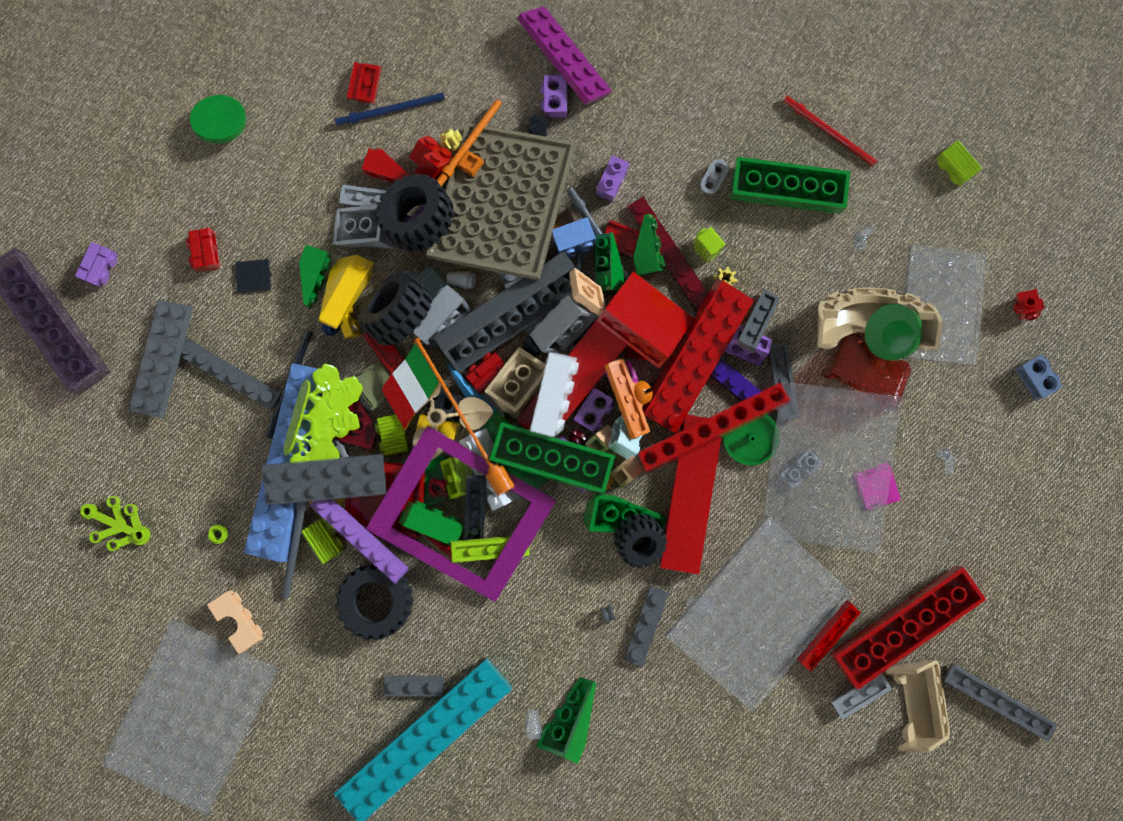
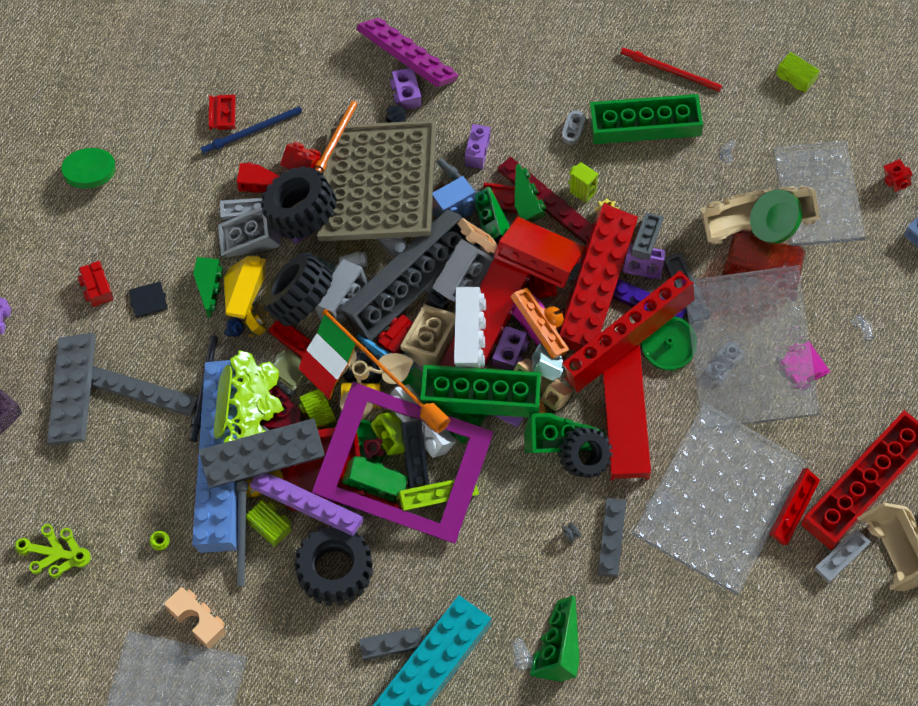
camera: 10 degrees left, 20 degrees down
(450, 140) = (316, 142): light yellow gear -> none
(470, 163) = (340, 156): orange tile -> none

